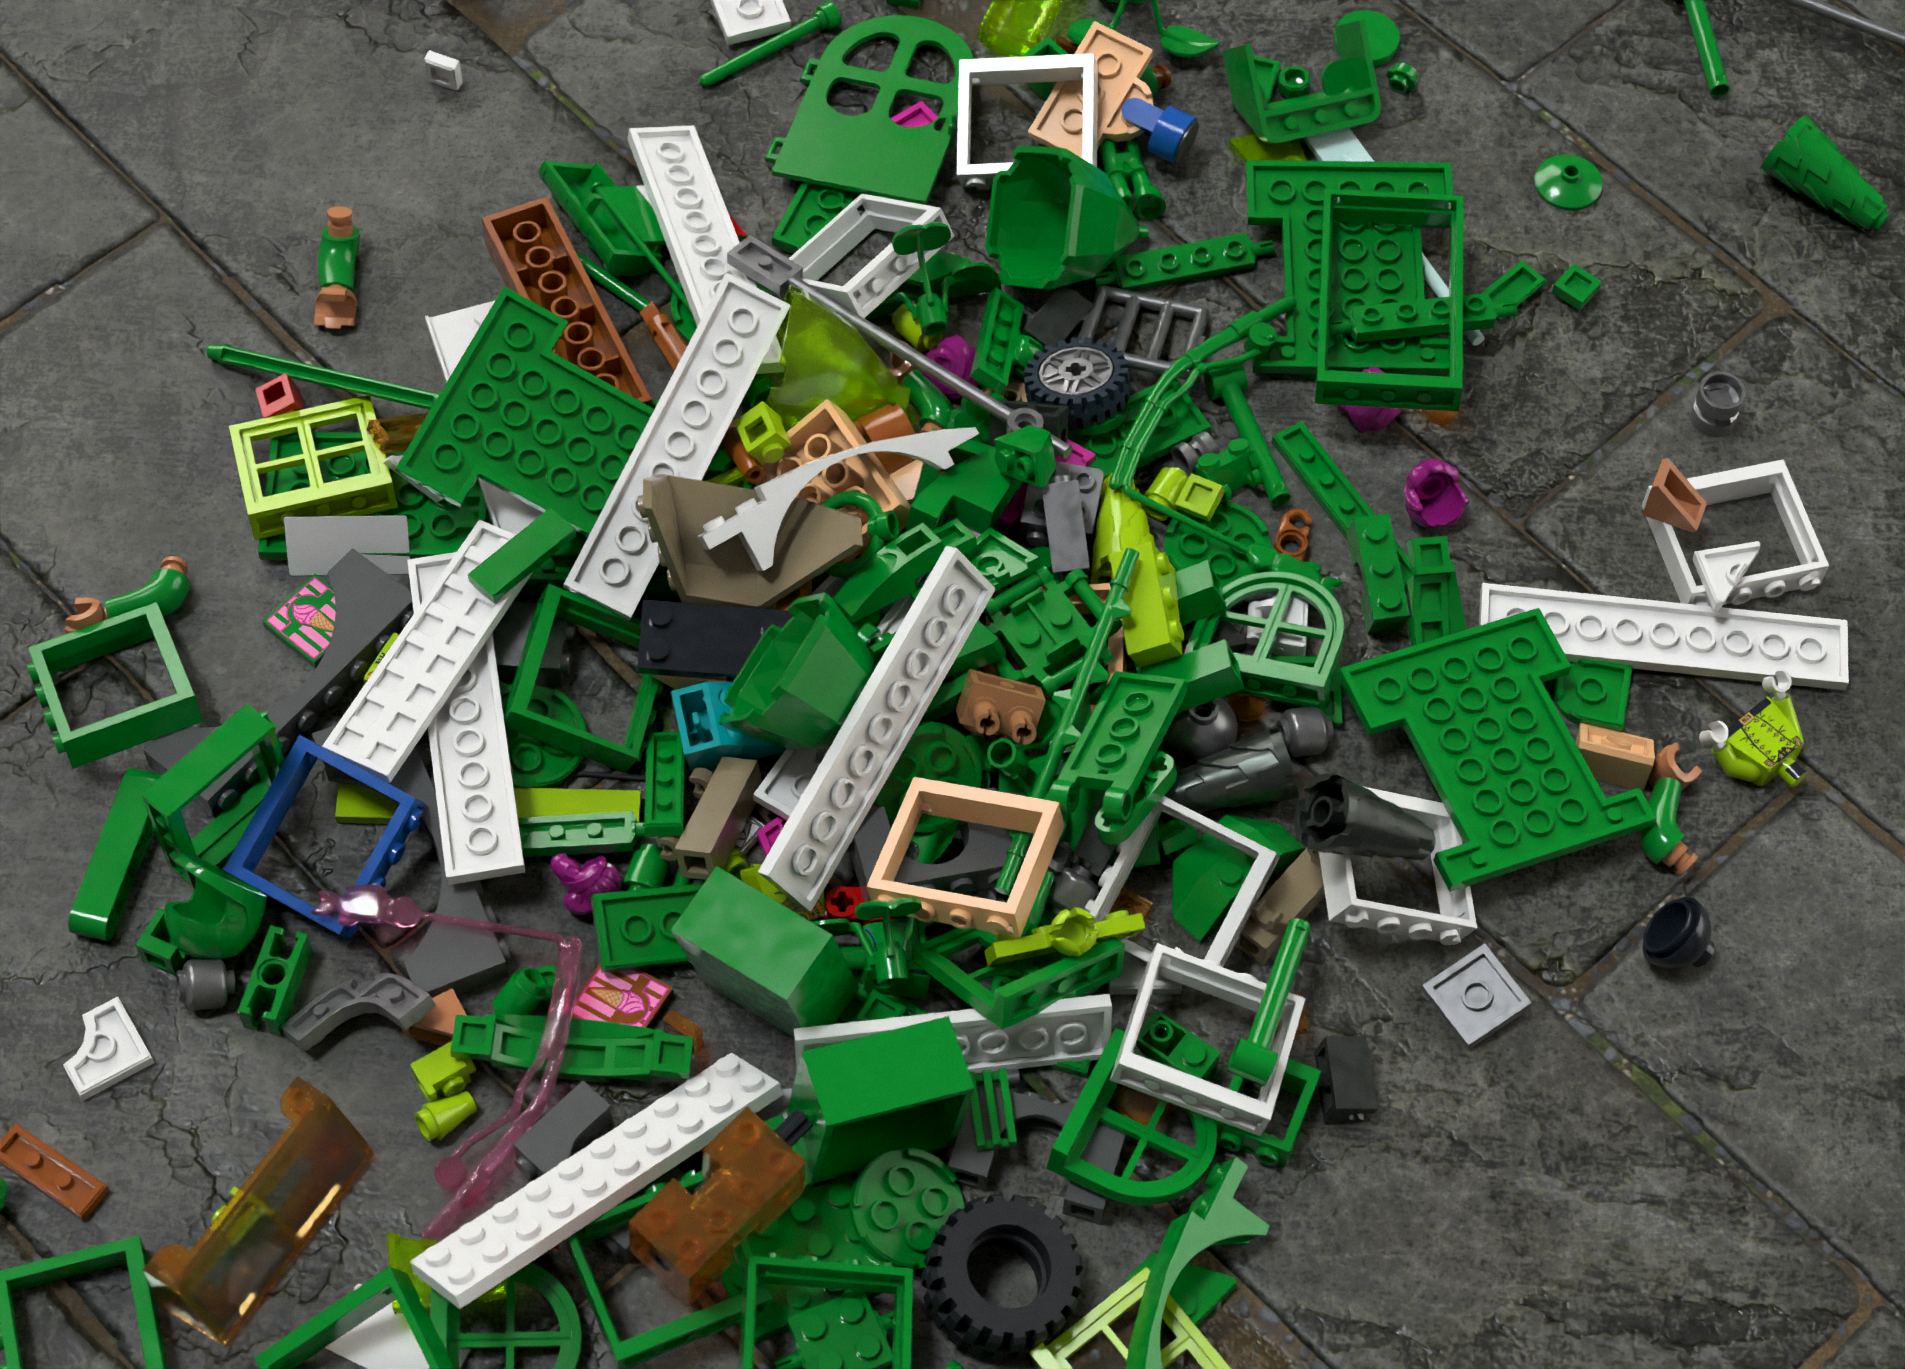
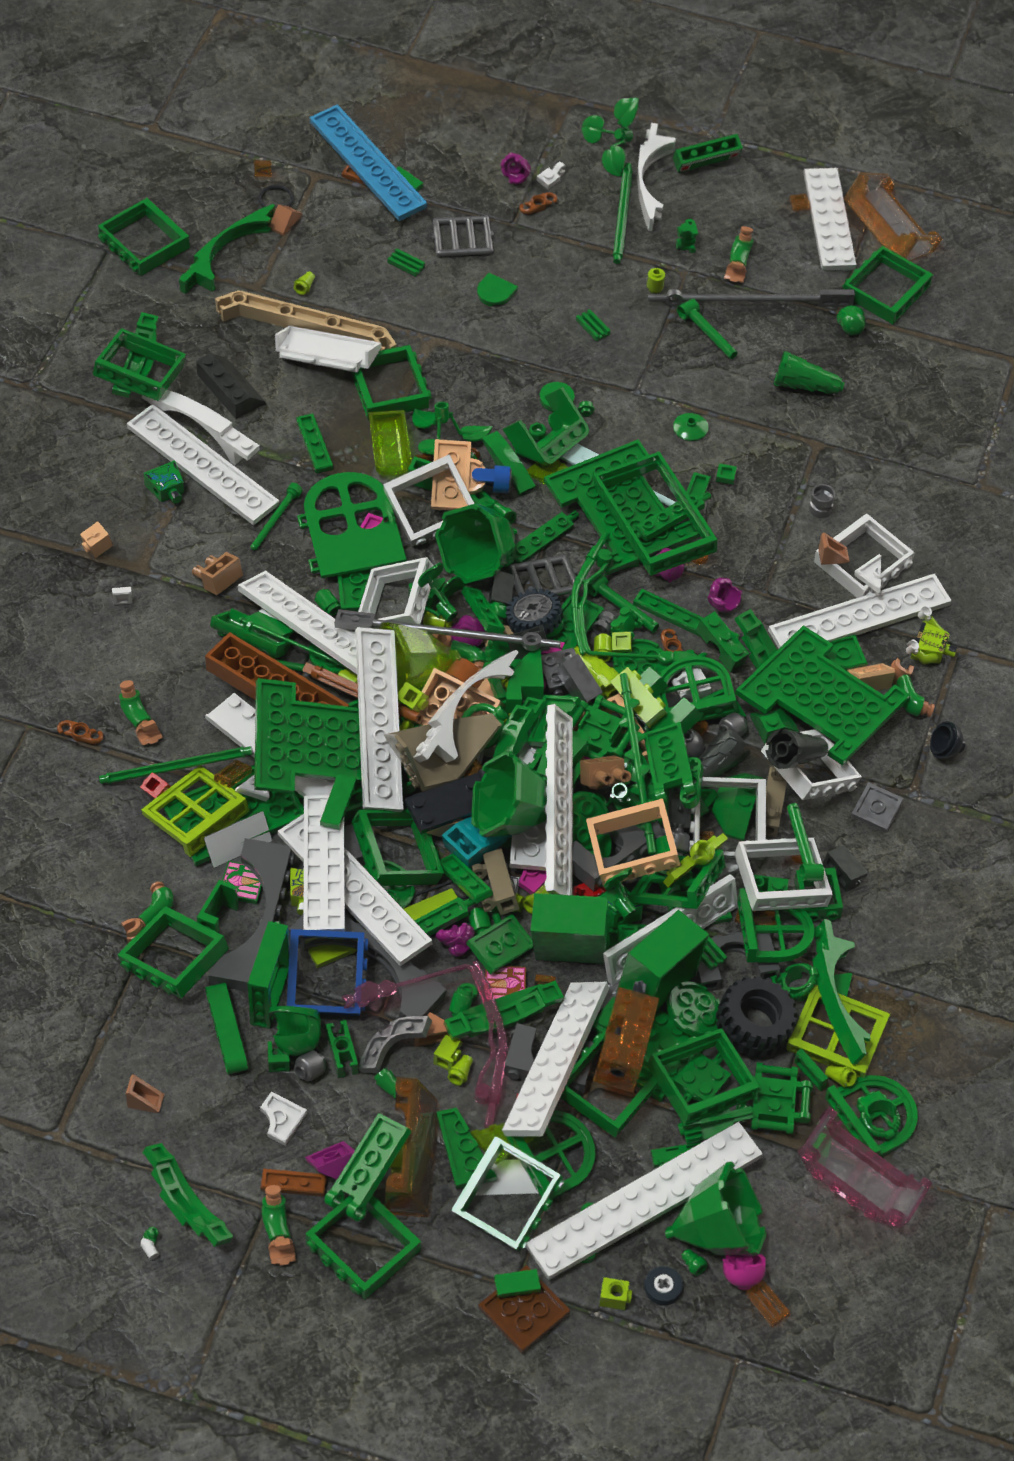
camera: 30 degrees left, 5 degrees down
(131, 1174) = (332, 1159): none -> magenta slope
(156, 1208) = (368, 1165): none -> green hinge
(224, 642) = (222, 894): none -> green panel
(238, 272) = (74, 726): none -> dark orange piece
(312, 1068) = (387, 1081): none -> green cone
(353, 1249) = (460, 1147): none -> green wing
(616, 98) = (219, 572): none -> medium nougat brick
(758, 217) = (327, 602): none -> green brick
(1026, 455) = (545, 653): green slope -> none
(1097, 1238) = (793, 973): none -> green piece
(1209, 106) = (505, 456): none -> green slope
(1385, 762) = (774, 720): none -> green slope

